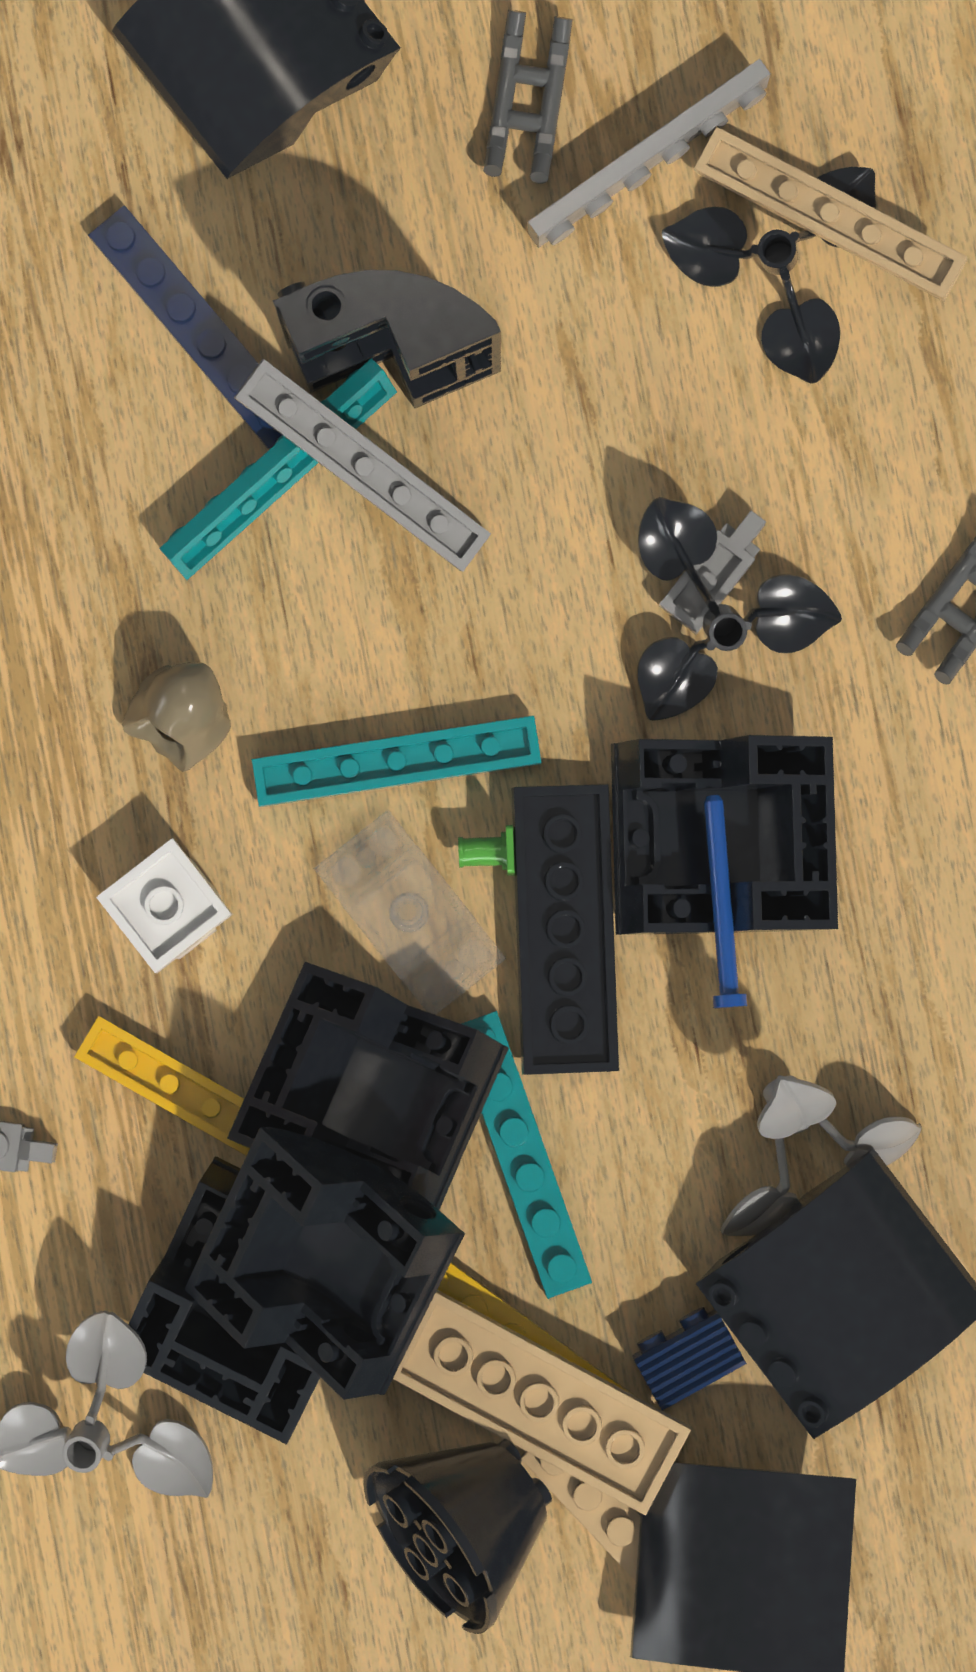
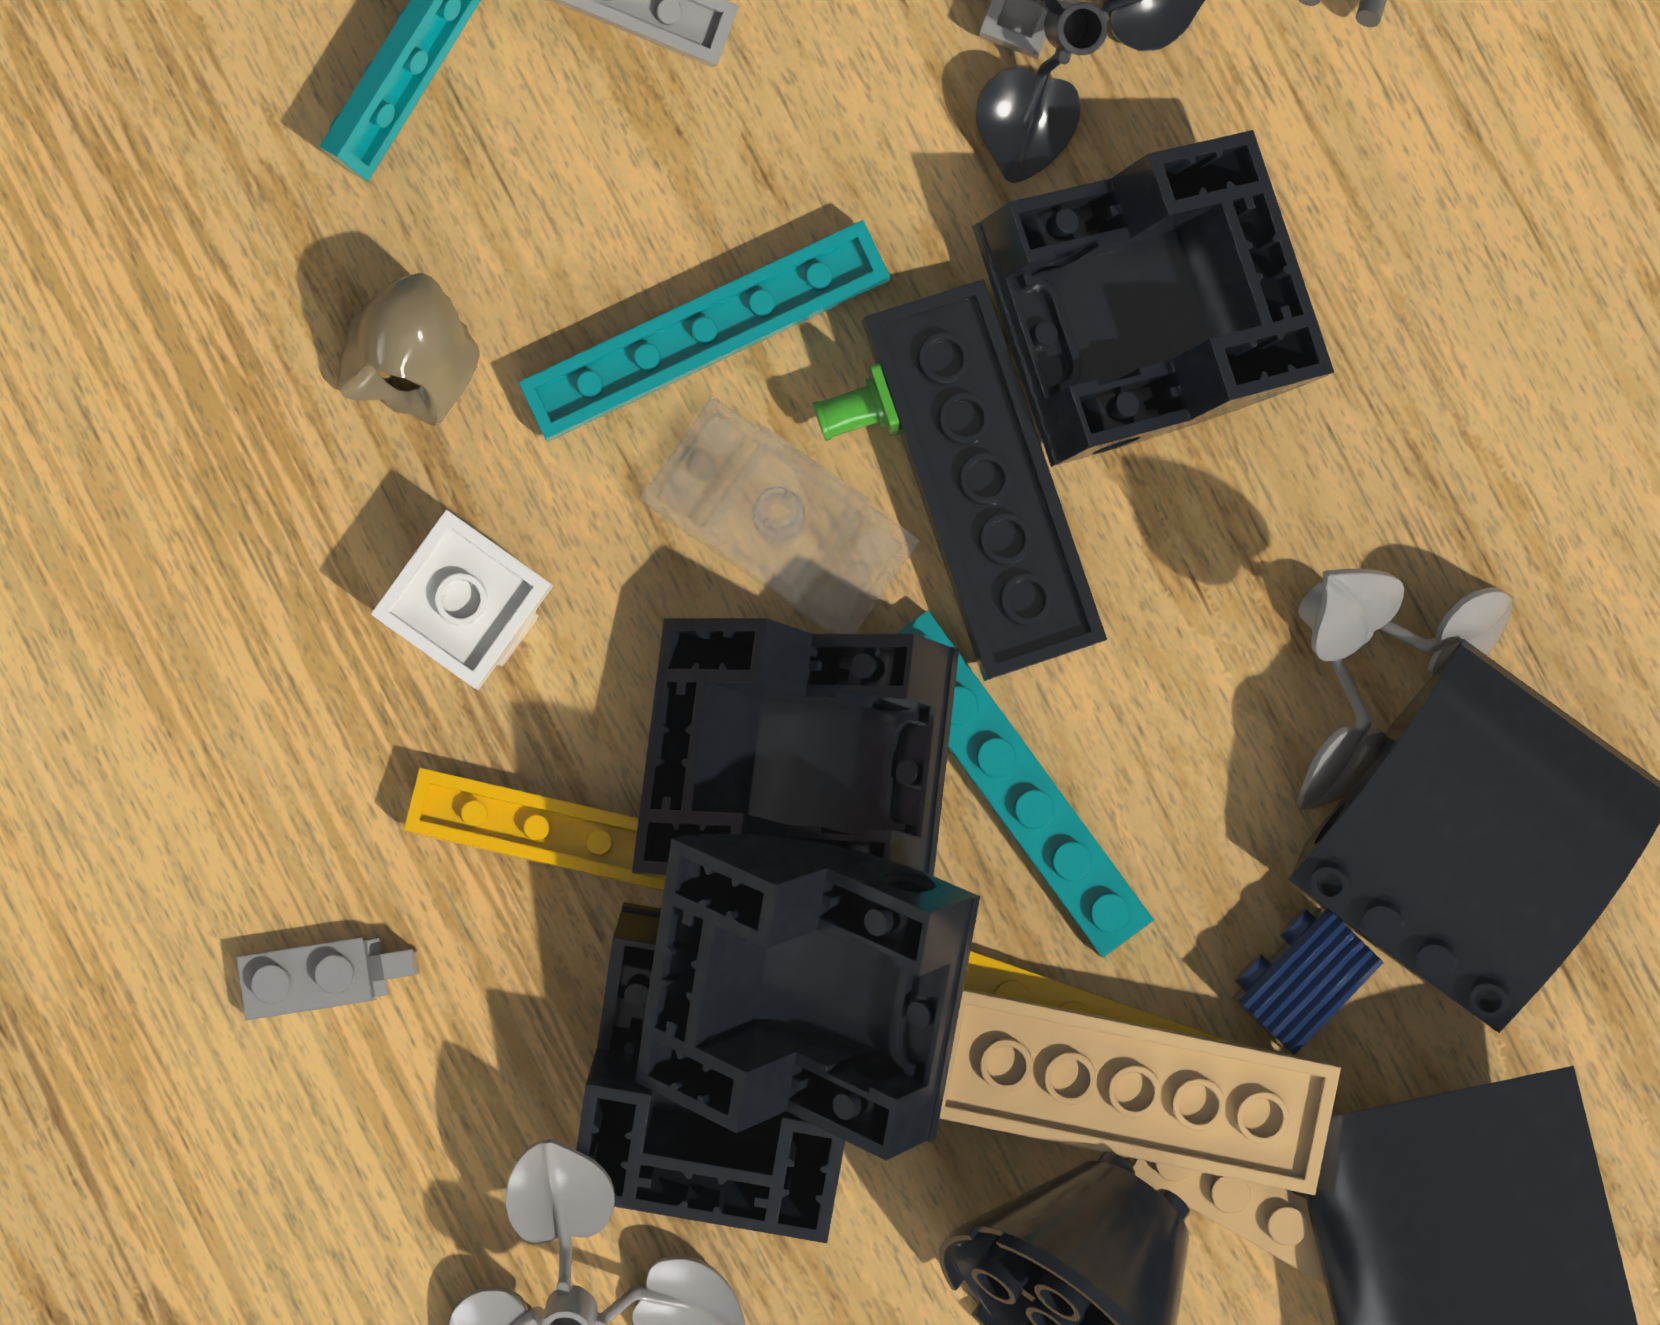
camera: 20 degrees left, 0 degrees up
(722, 906) = (1178, 388): blue bar -> none

